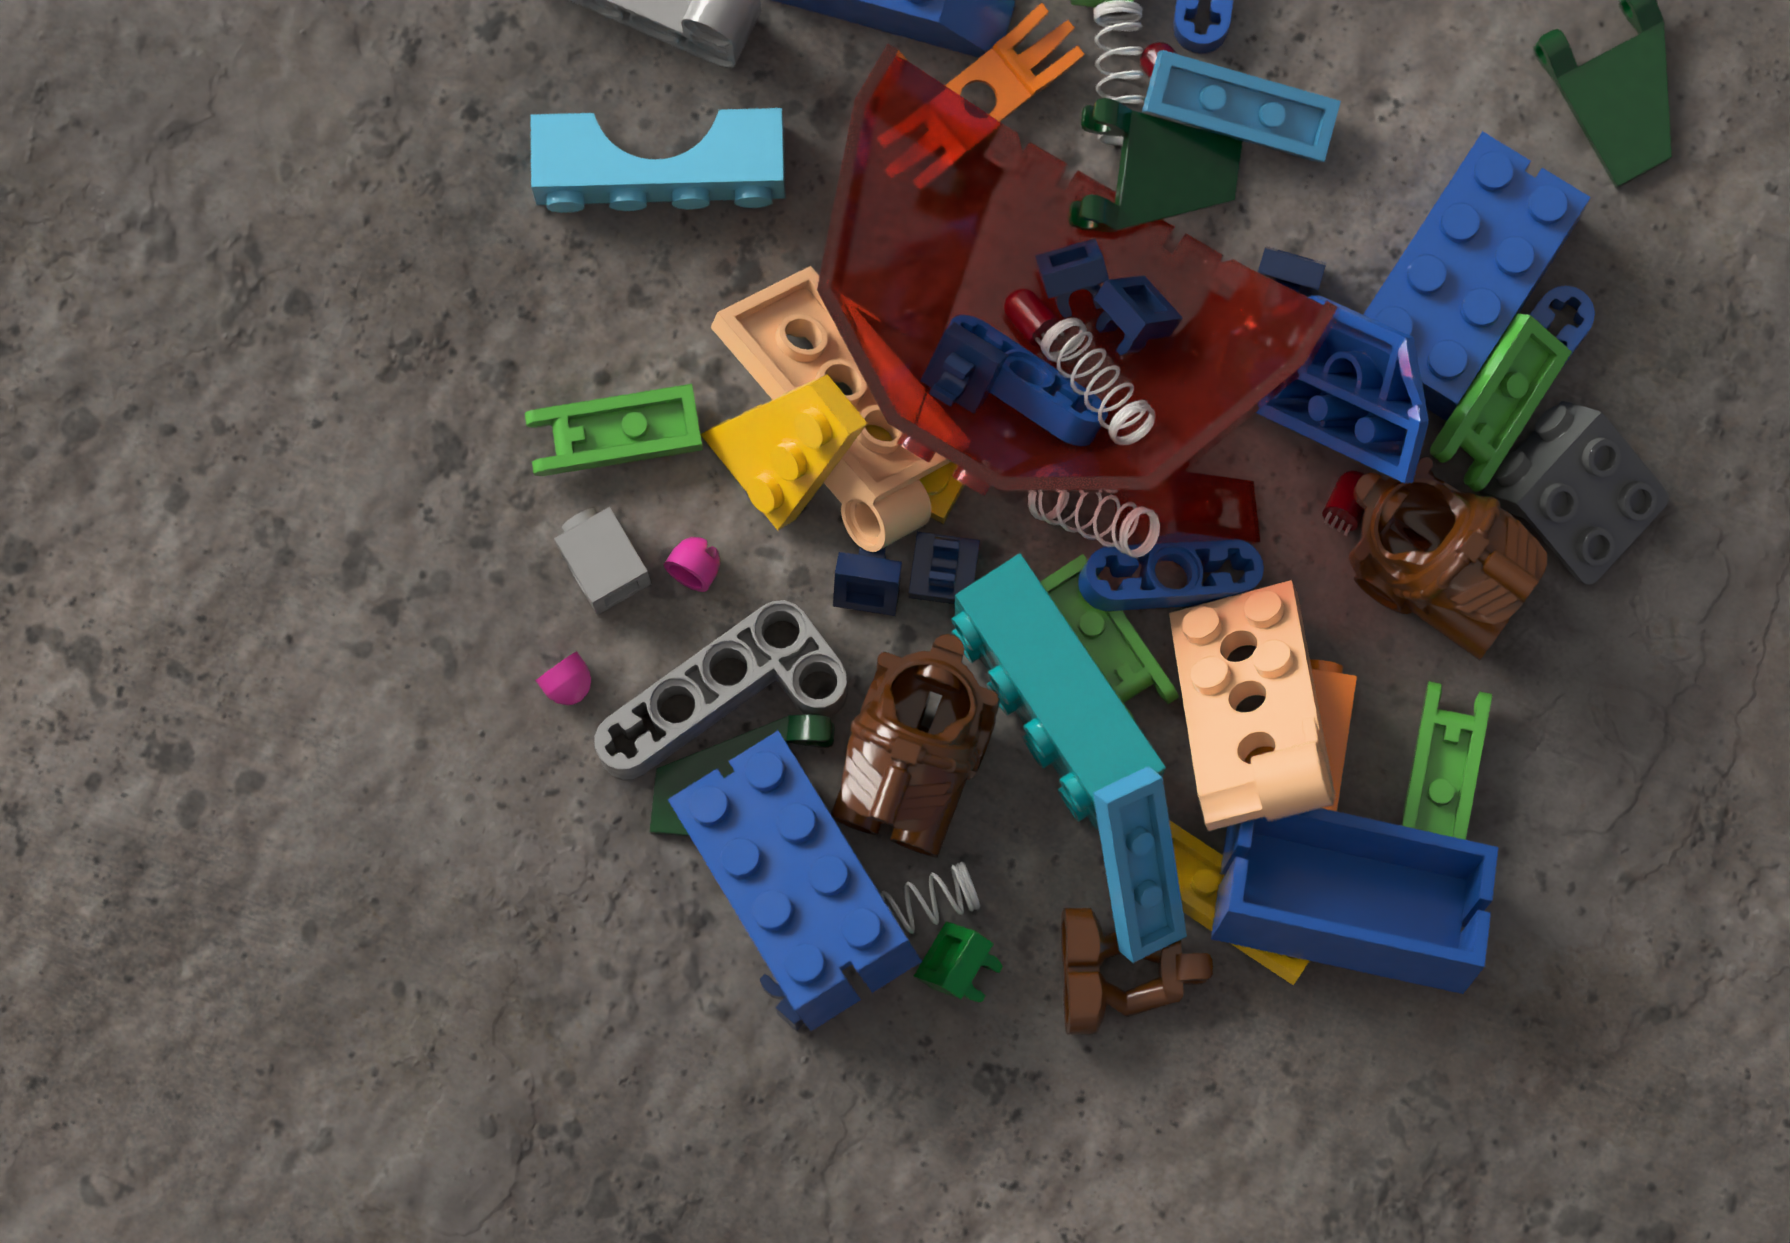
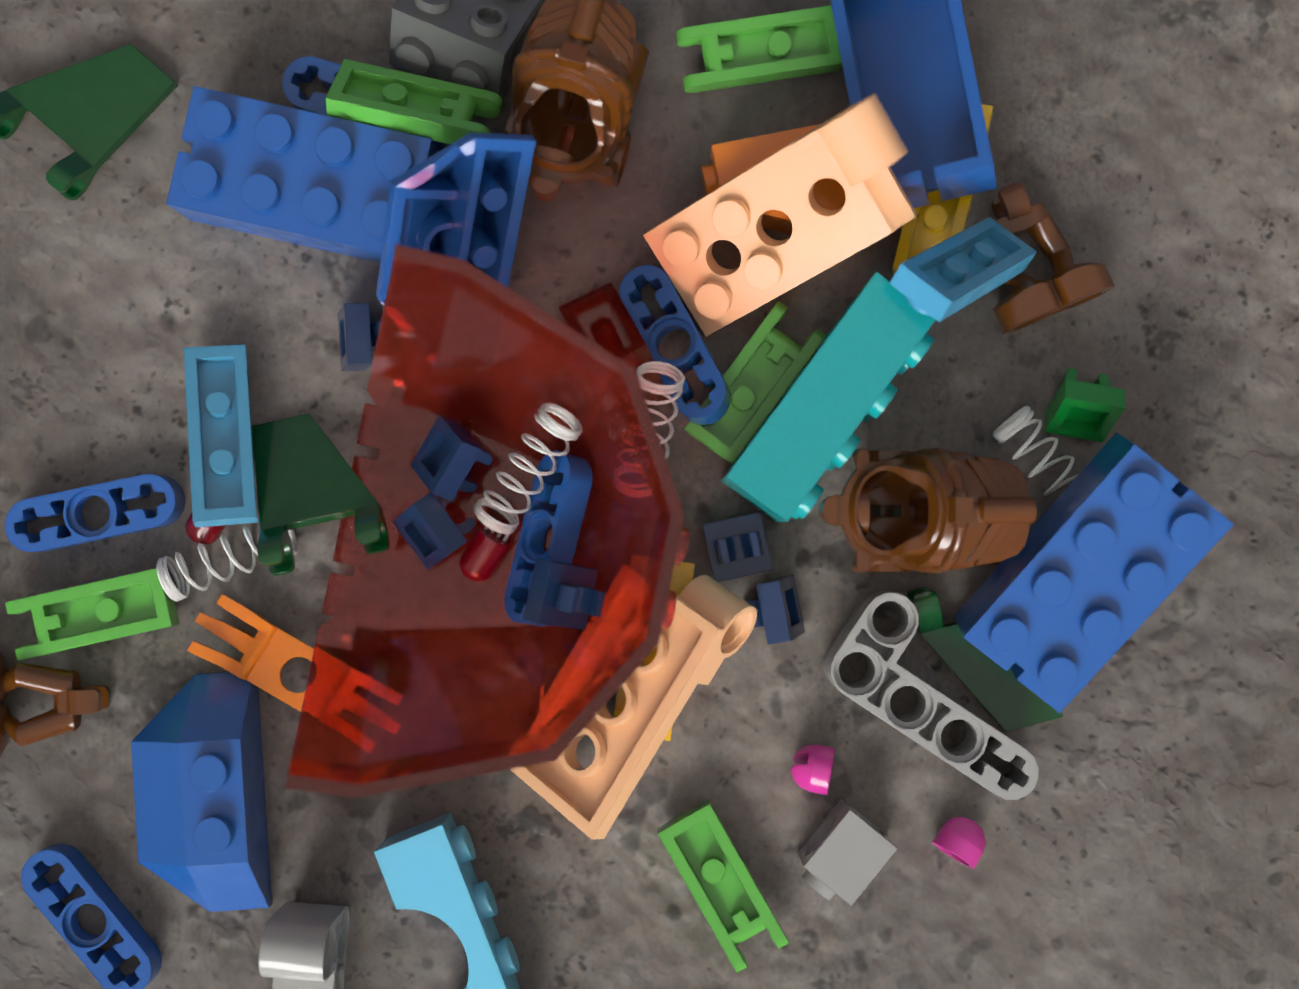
camera: 110 degrees left, 10 degrees up
(788, 446) = (691, 727): yellow wing -> none
(1341, 508) = (548, 218): dark red piece -> none

